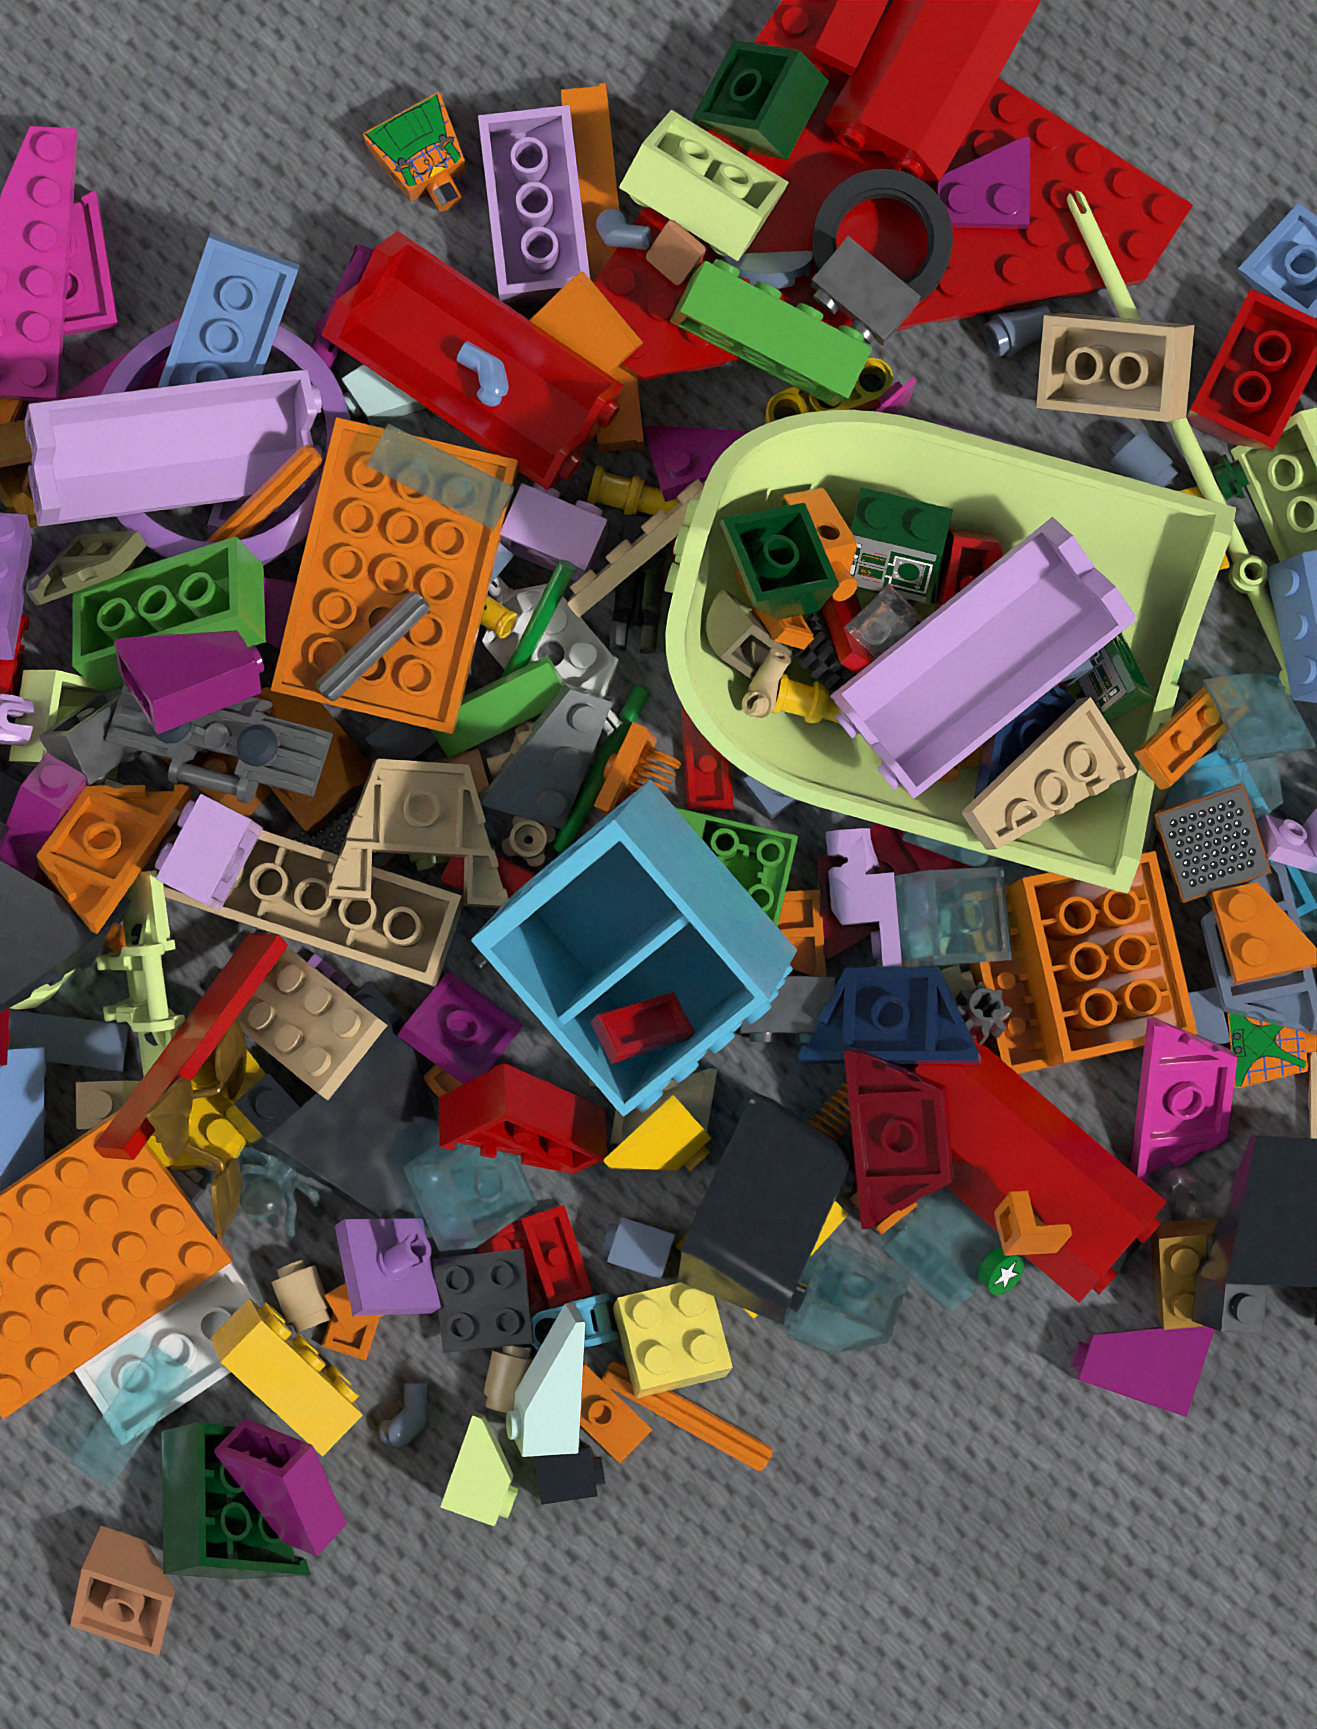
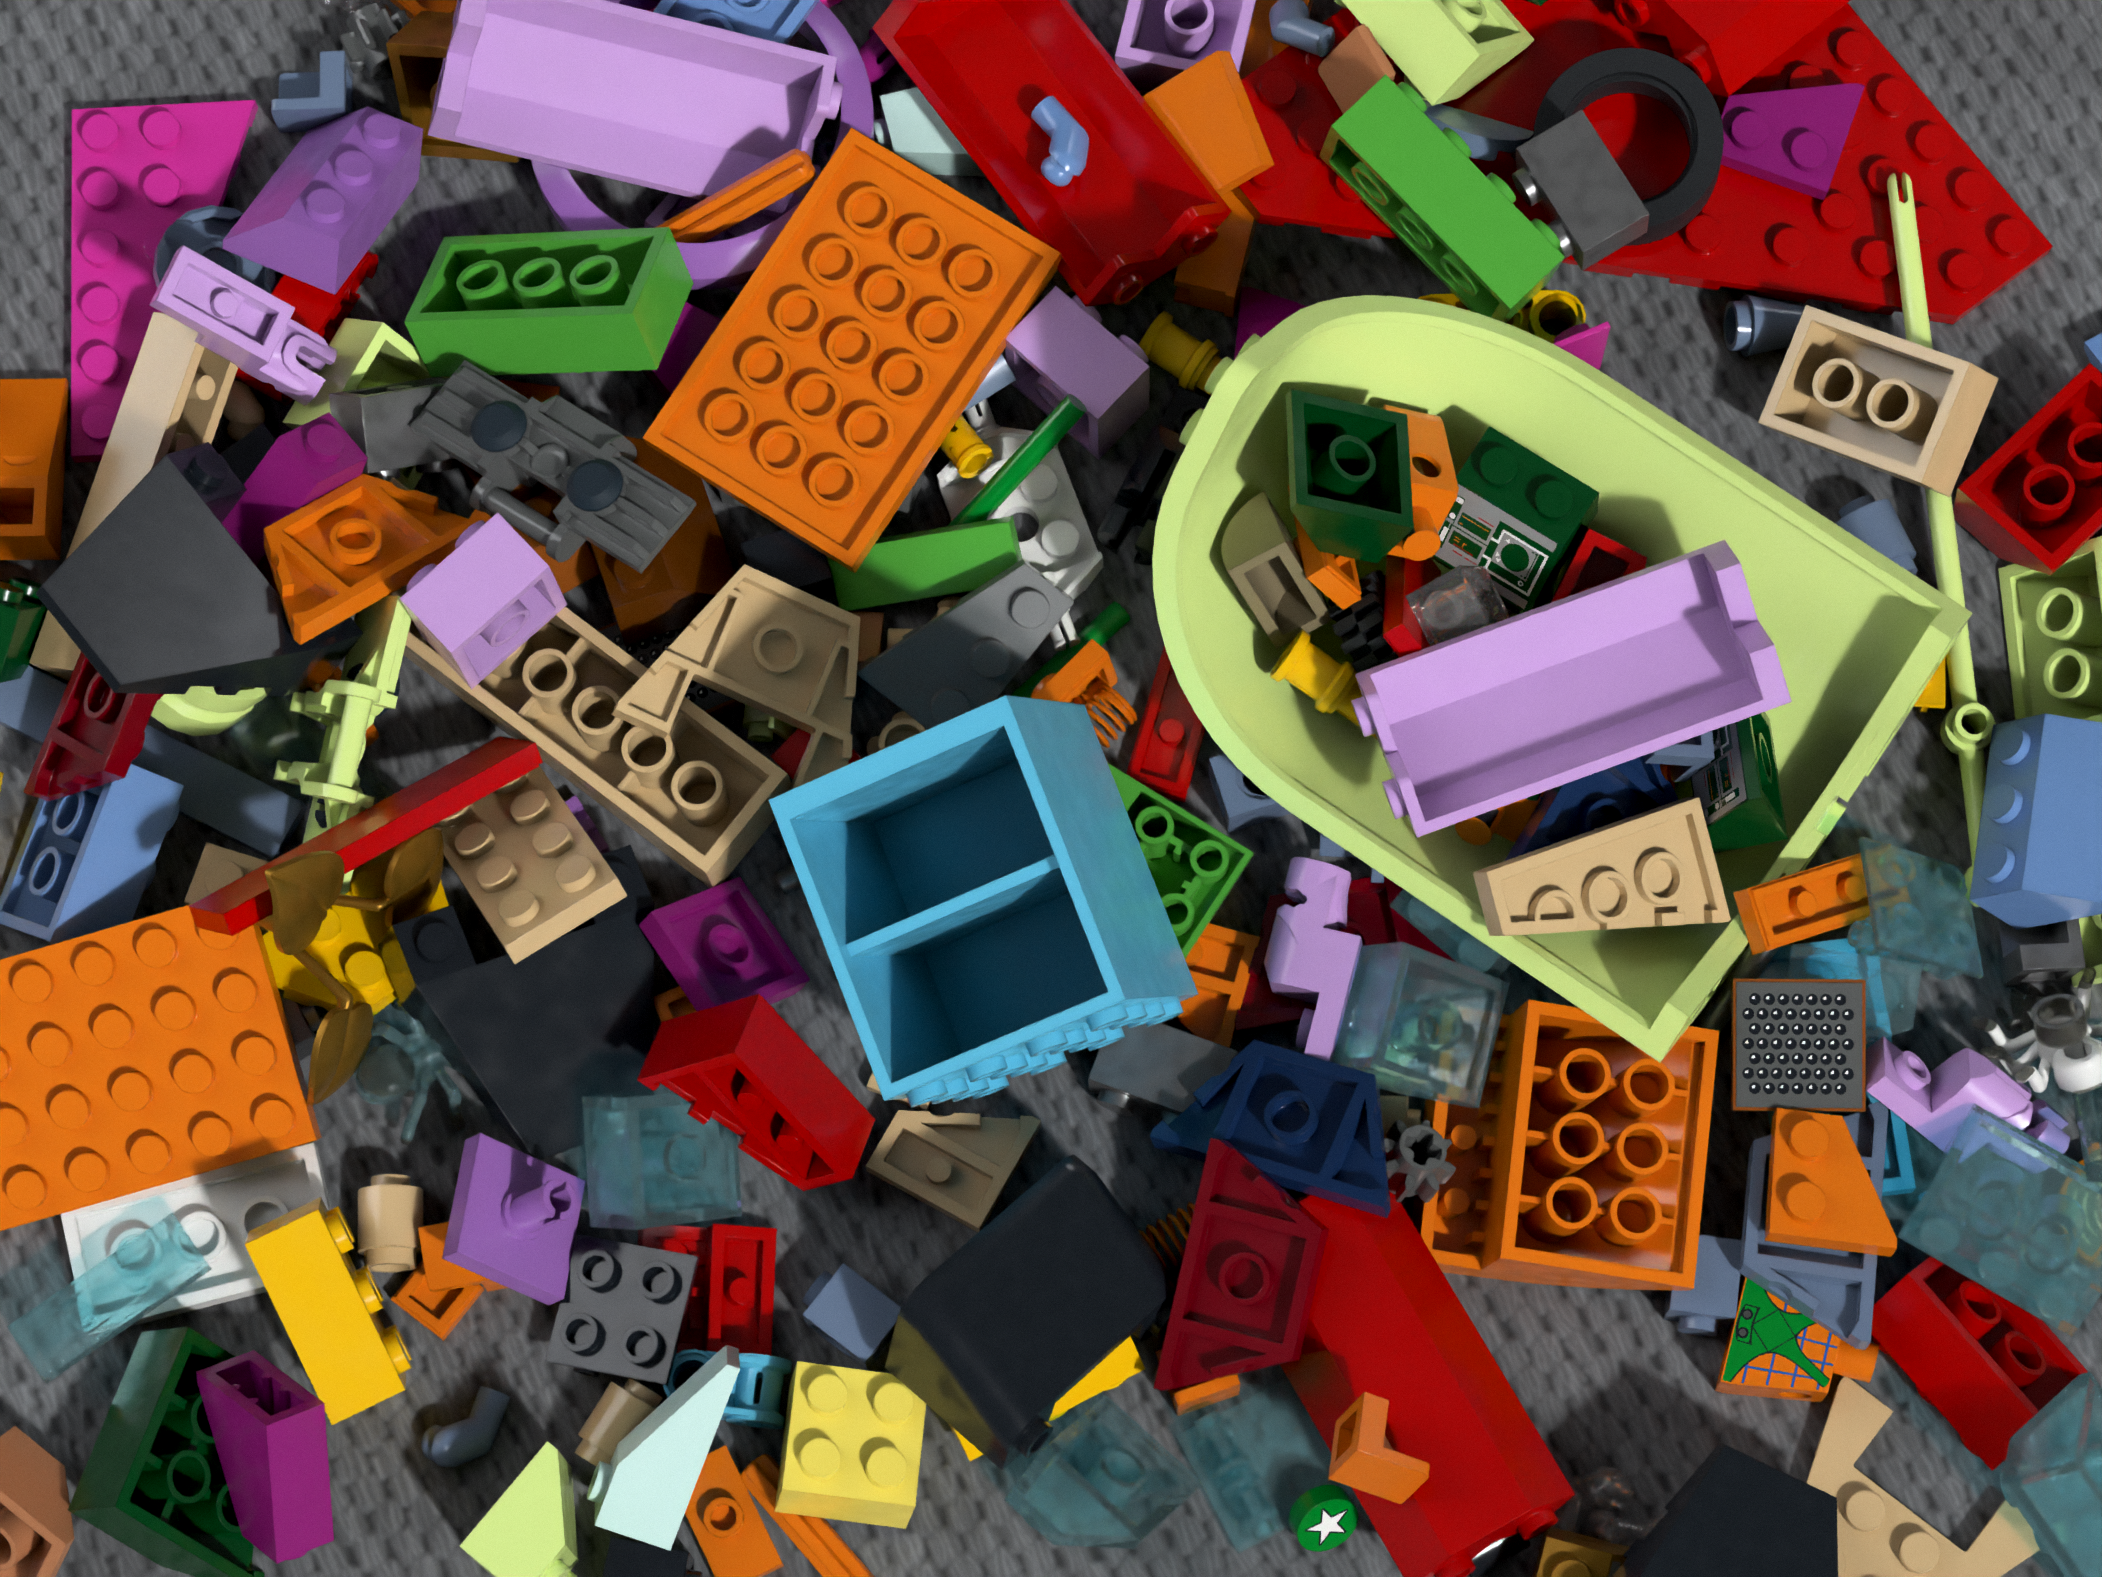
camera: 25 degrees right, 10 degrees down
(87, 562) = (474, 211): olive wing -> none
(188, 674) = (543, 371): magenta slope -> none
(373, 646) = (791, 421): flat silver axle -> none
(441, 477) = (955, 241): clear light blue tile -> none
(629, 557) = (1100, 445): tan wing -> none
(642, 1027) = (952, 1001): red tile -> none
(662, 1142) = (927, 1178): yellow slope -> none
(763, 688) = (1271, 643): tan arm -> none
(1180, 1098) = (1643, 1369): dark pink wing -> none
(1230, 478) = (1986, 600): dark green plate -> none

